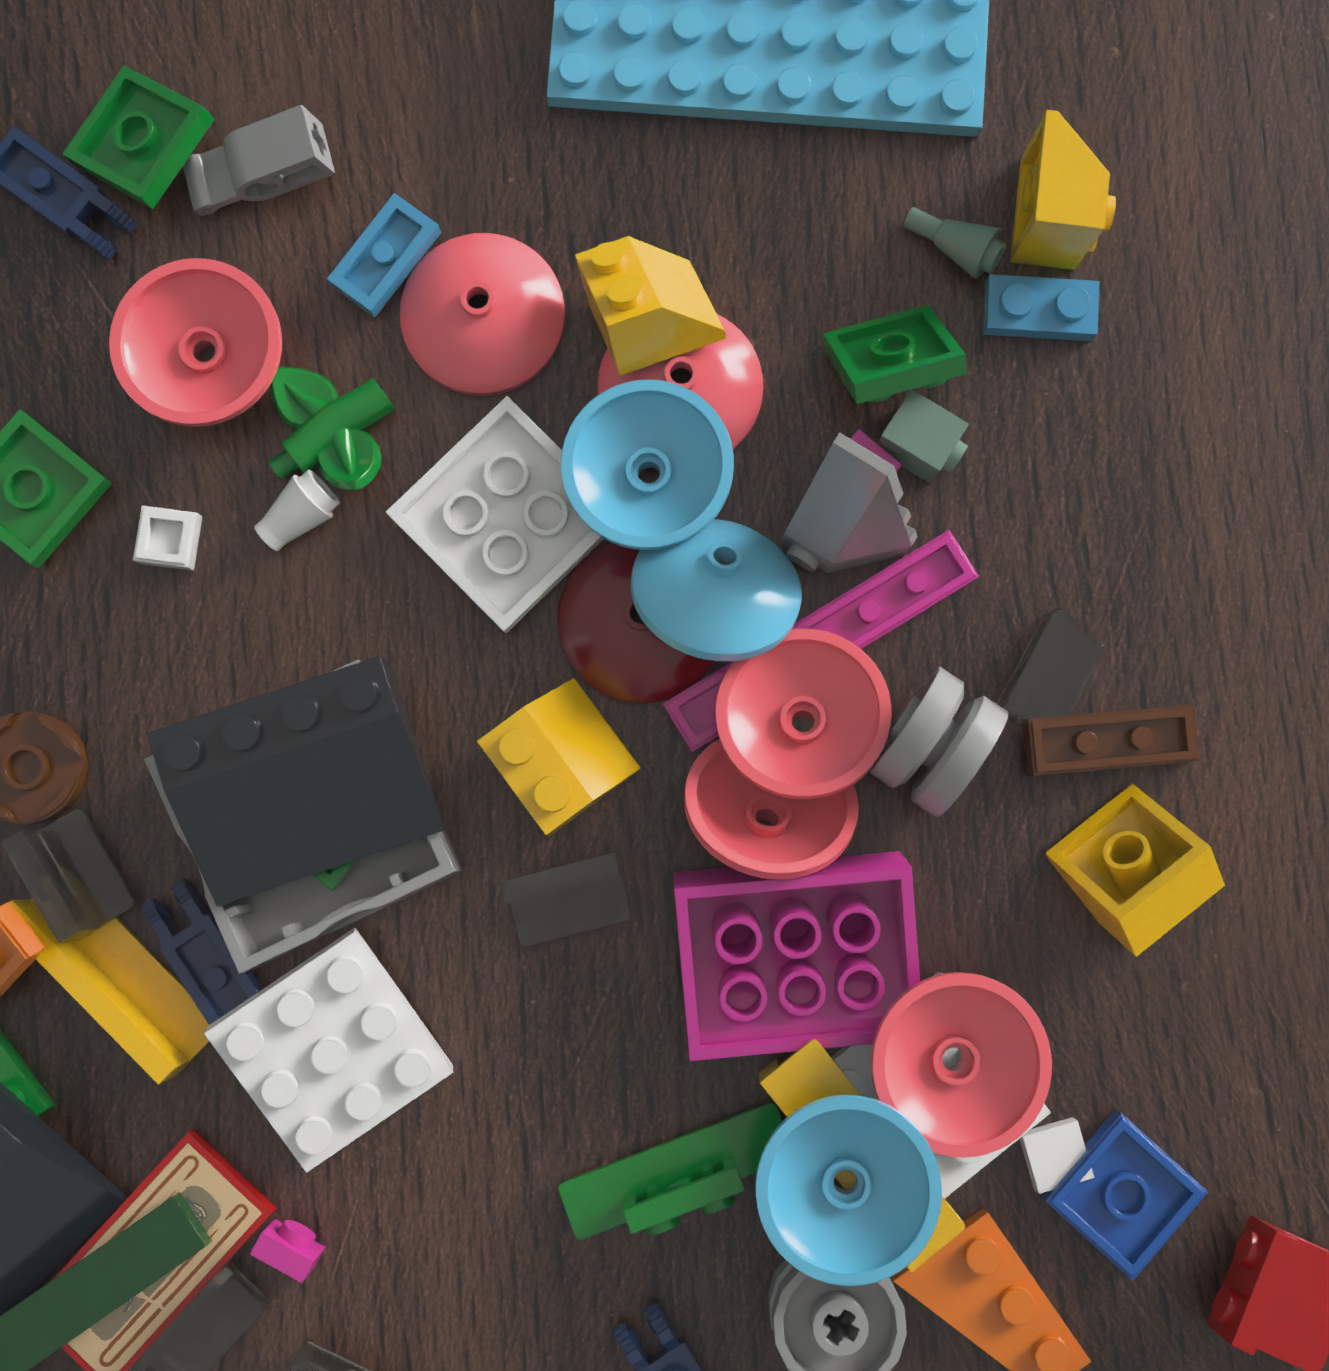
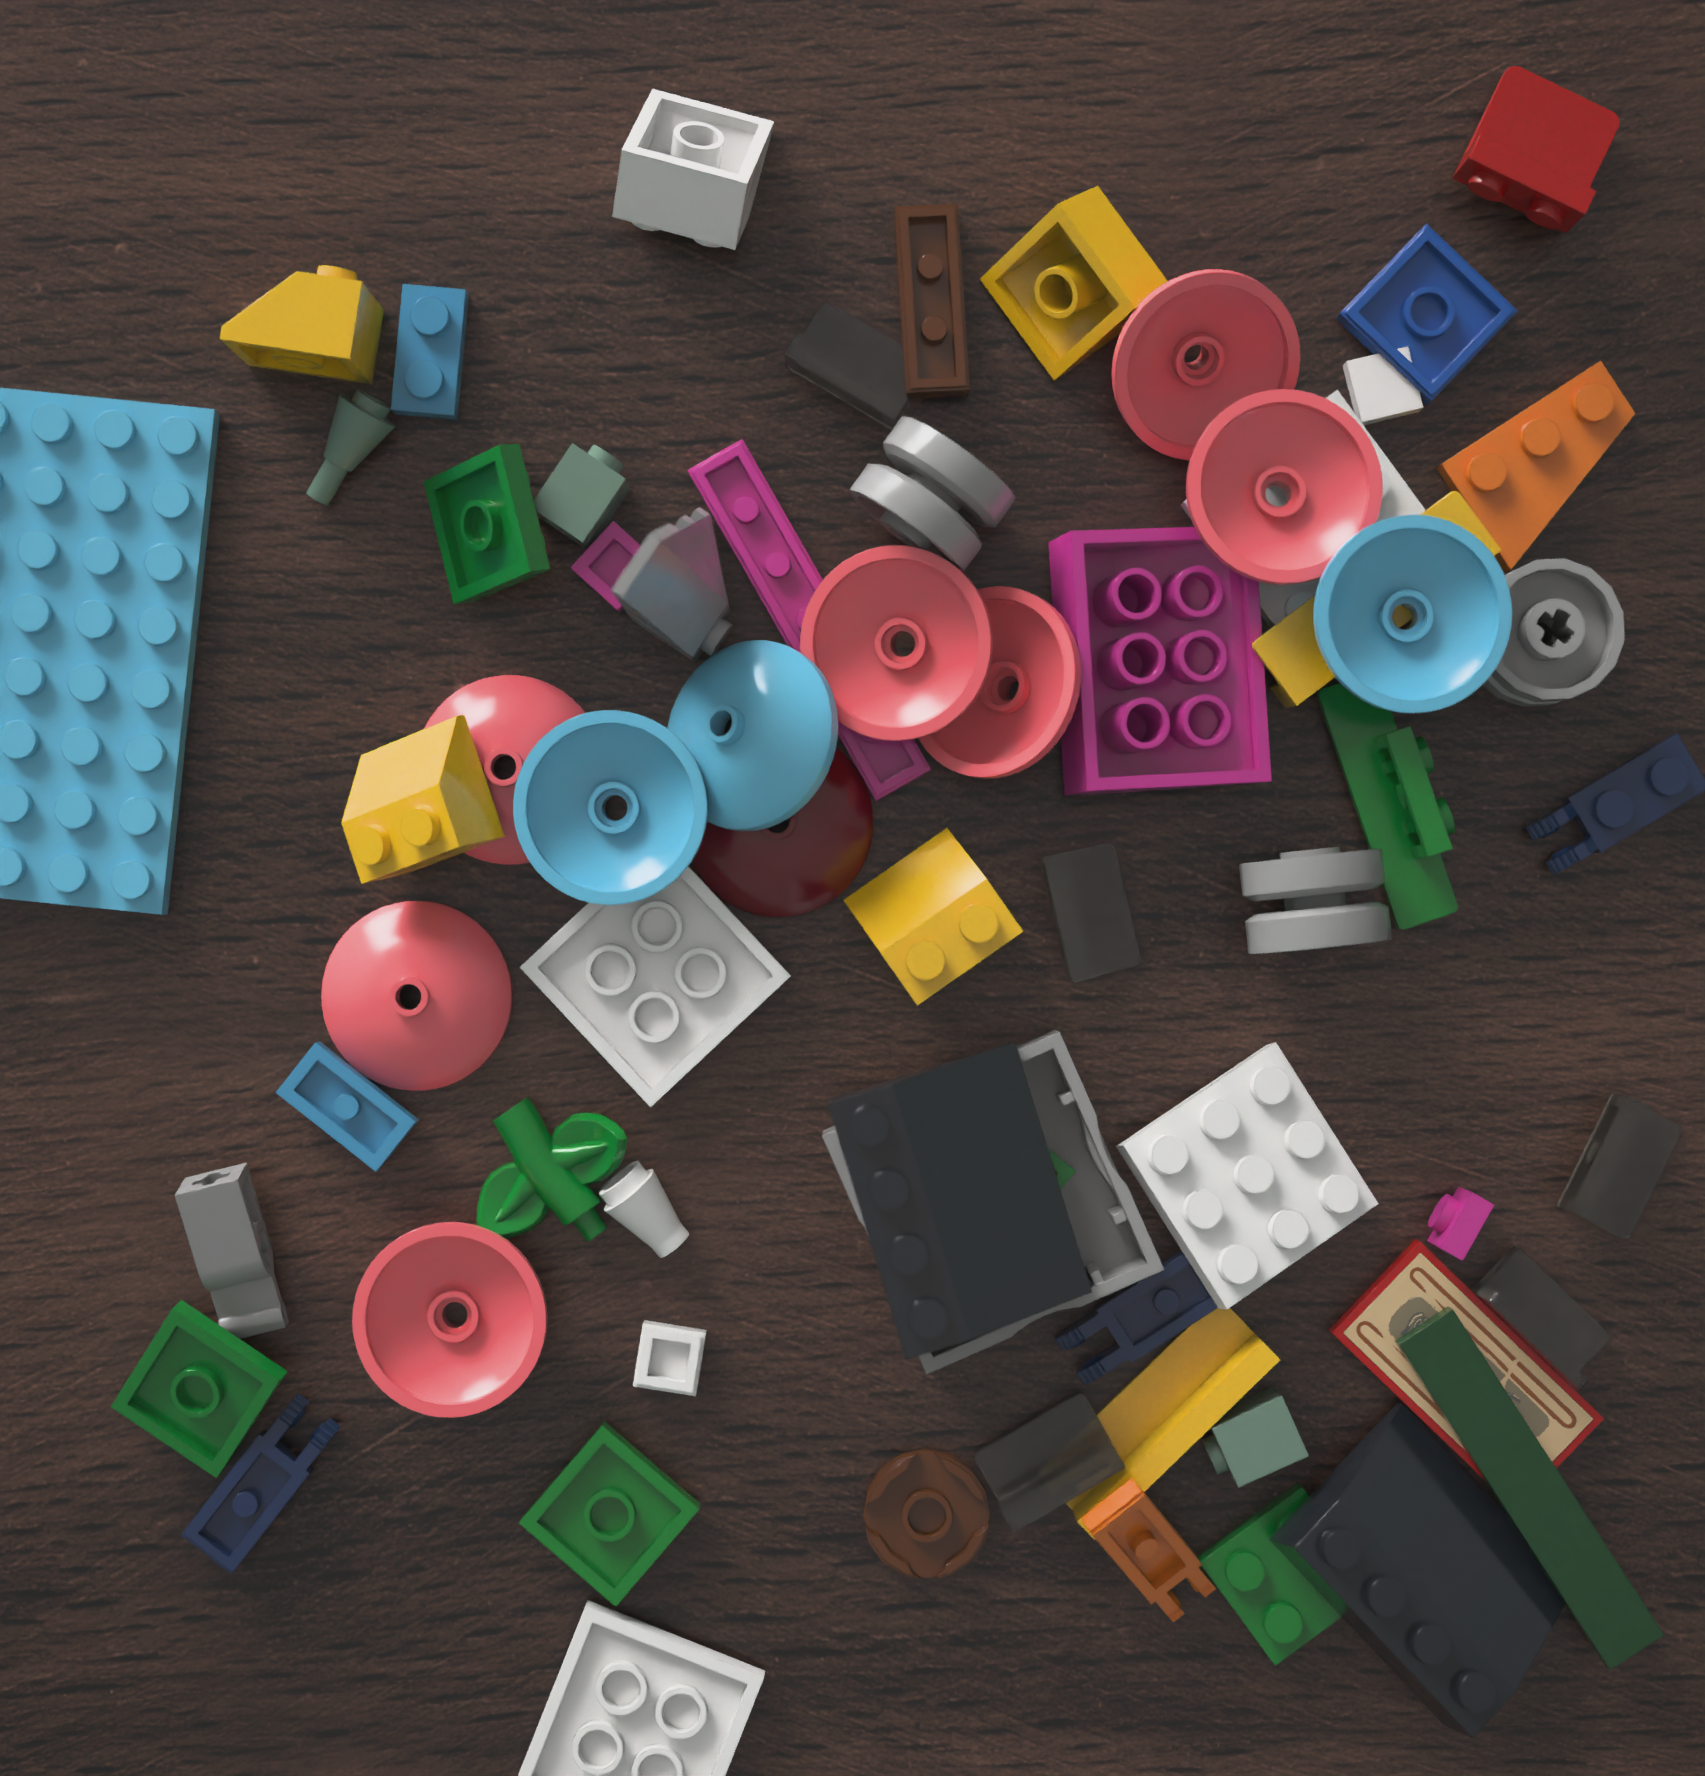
camera: 85 degrees left, 5 degrees up
(88, 1063) = (1254, 1438): none -> sand green brick
(578, 1105) = (1315, 900): none -> light grey wheel
(1090, 1024) = (1245, 350): none -> coral dish
(1214, 523) = (691, 169): none -> white slope

